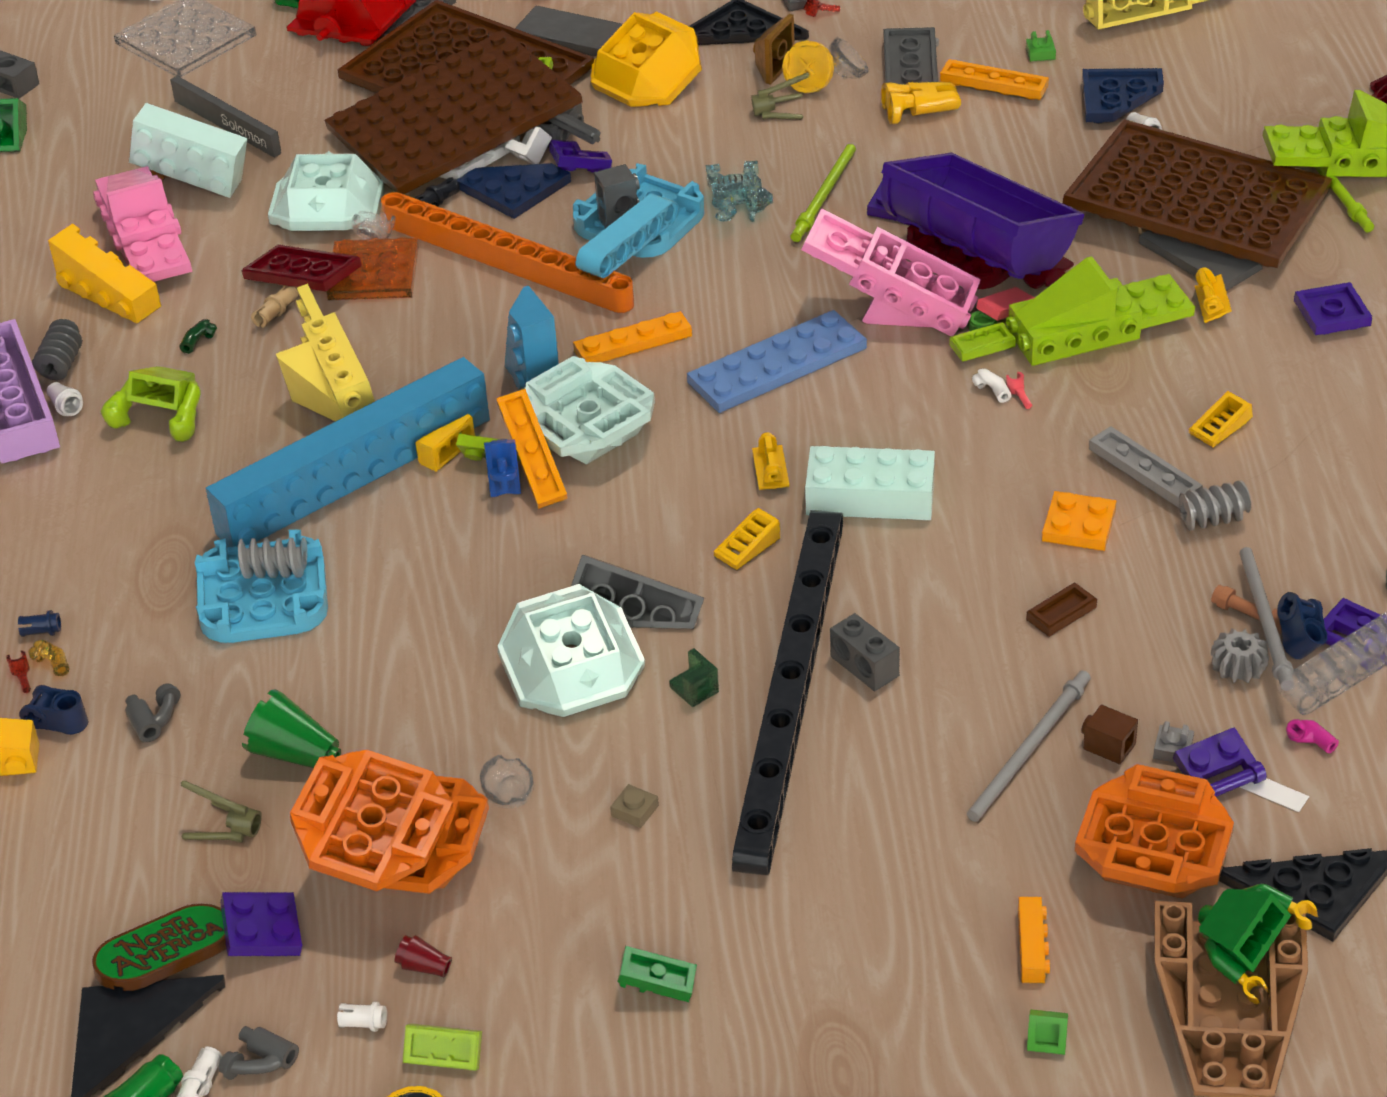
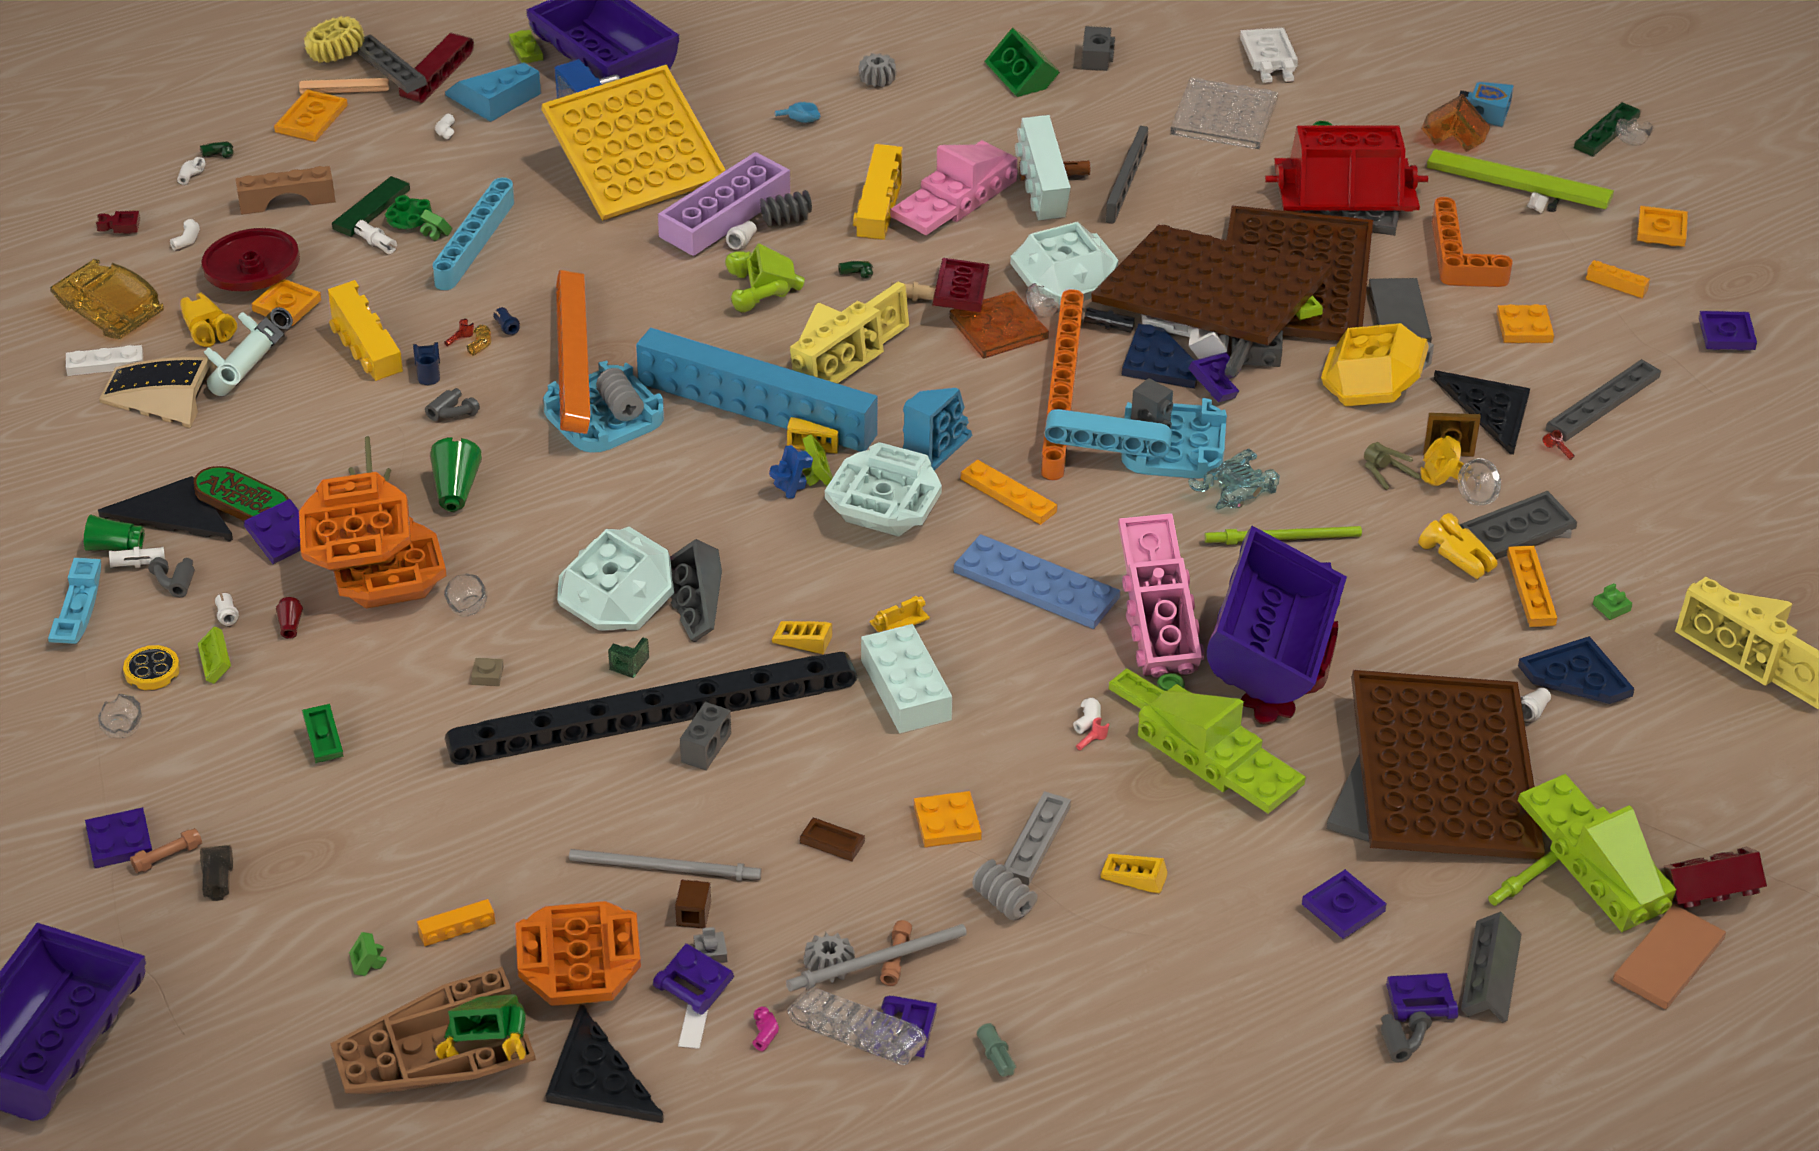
camera: 60 degrees right, 0 degrees up
(162, 575) = (572, 352): none -> orange beam
(532, 448) = (816, 476): light orange plate -> none
(997, 304) = (1197, 684): coral tile -> none
(1211, 295) = (1292, 820): yellow hinge -> none
(1301, 625) = (883, 980): dark blue piece -> none

